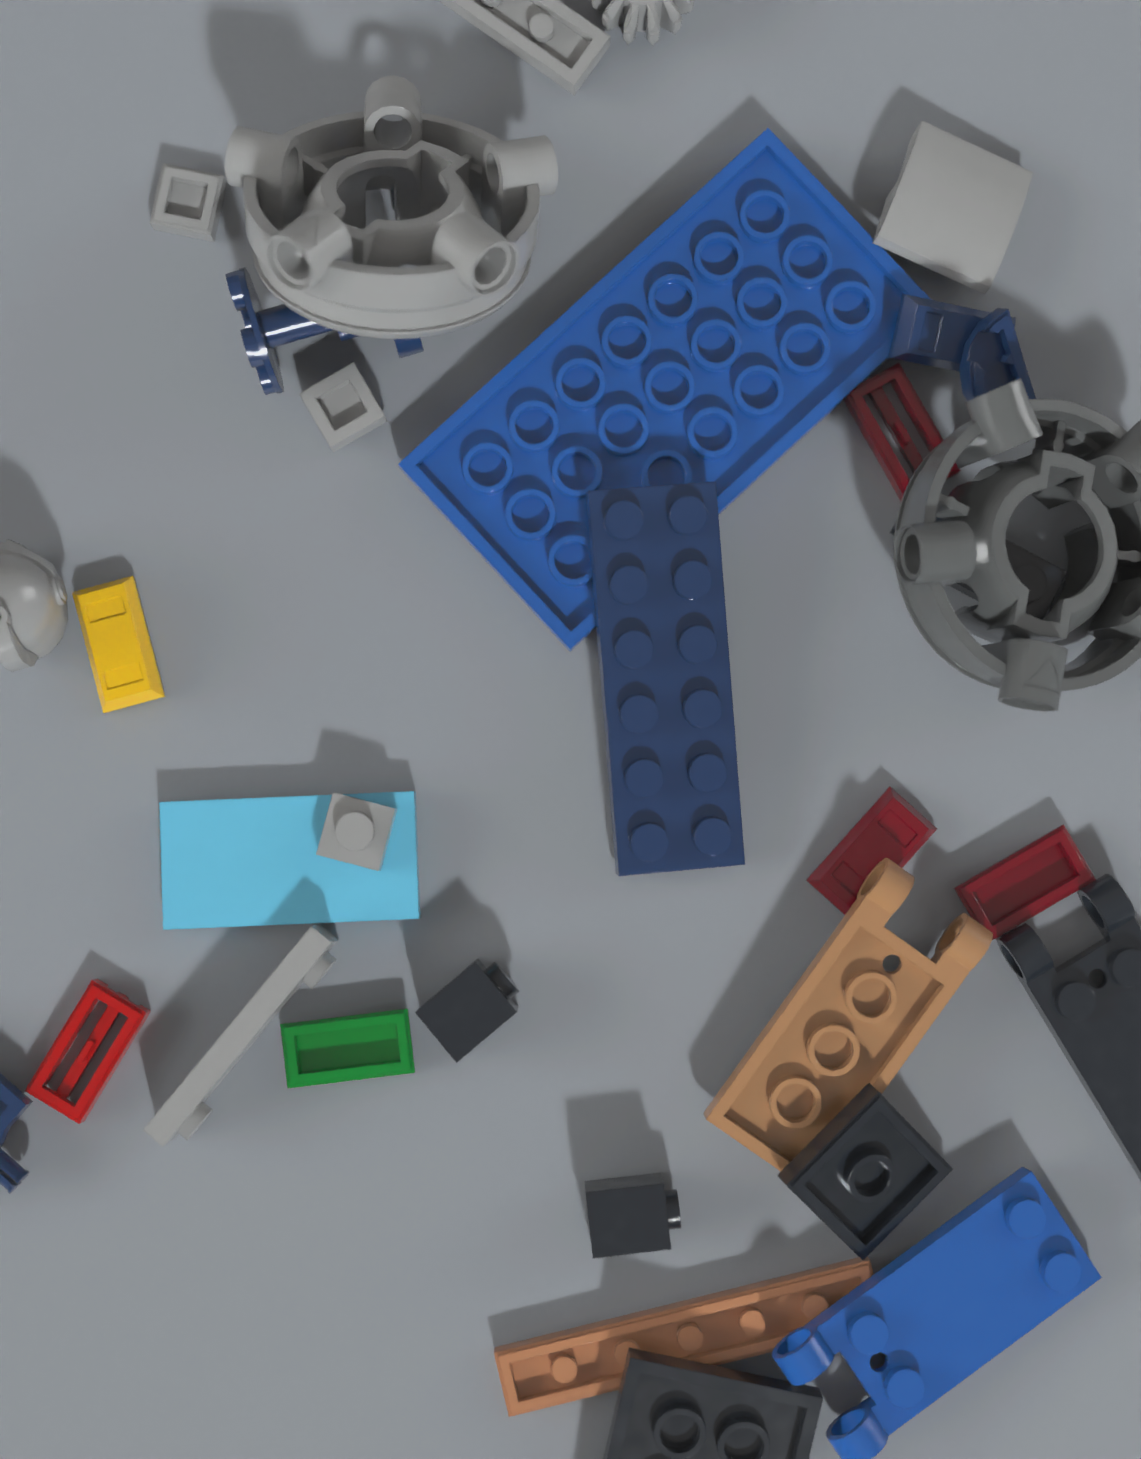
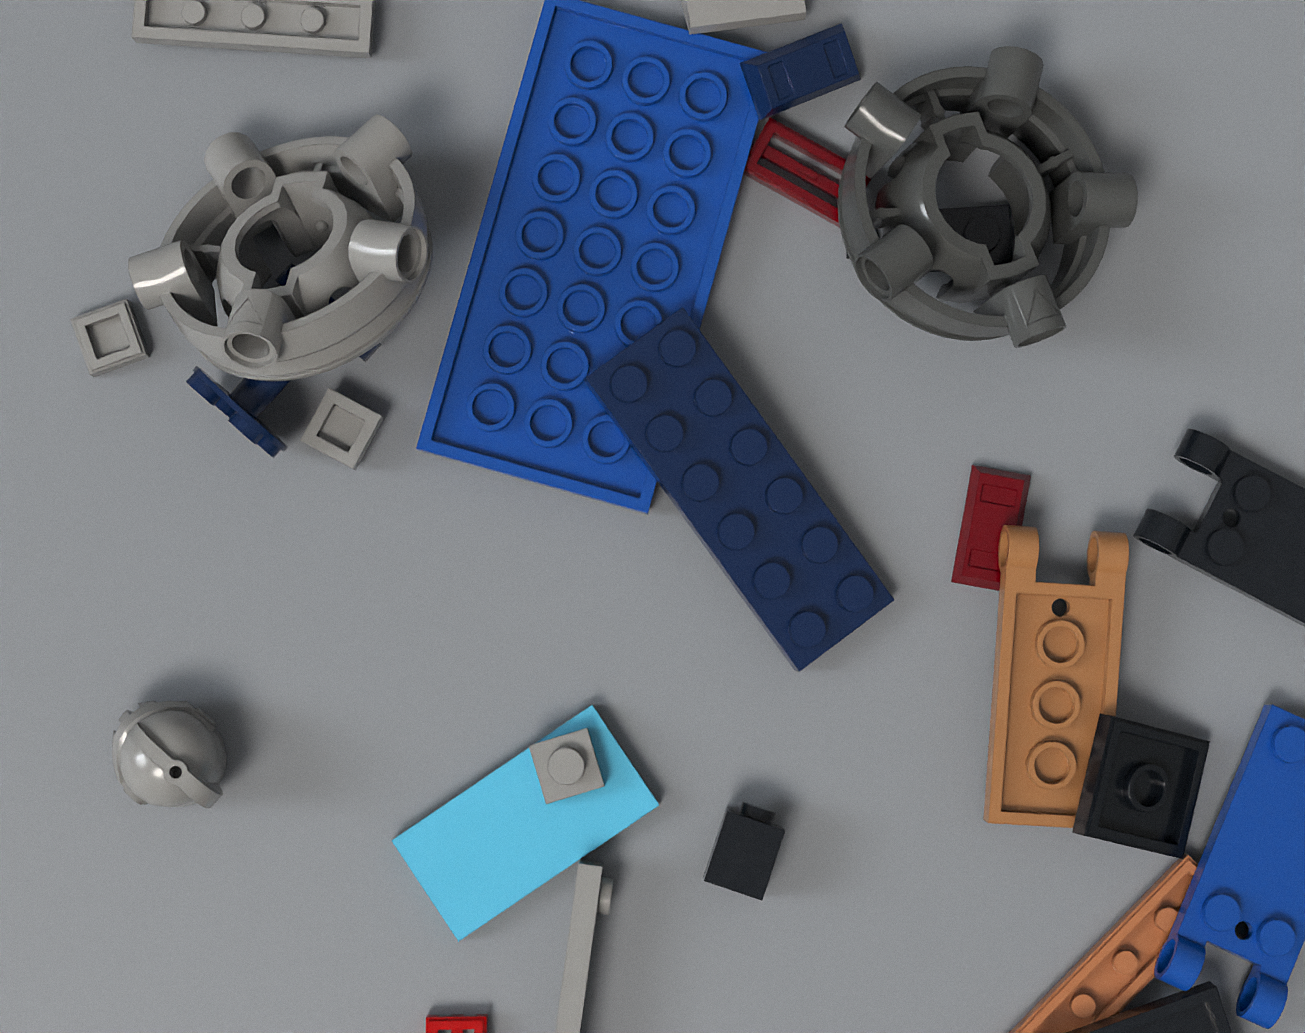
camera: 25 degrees left, 0 degrees up
(118, 644) = (276, 733): yellow tile -> none
(347, 1048) = (666, 944): green tile -> none
(631, 1214) = (975, 936): black brick -> none
(993, 357) = (846, 71): dark blue tile -> none
(1025, 882) = (1128, 476): dark red tile -> none

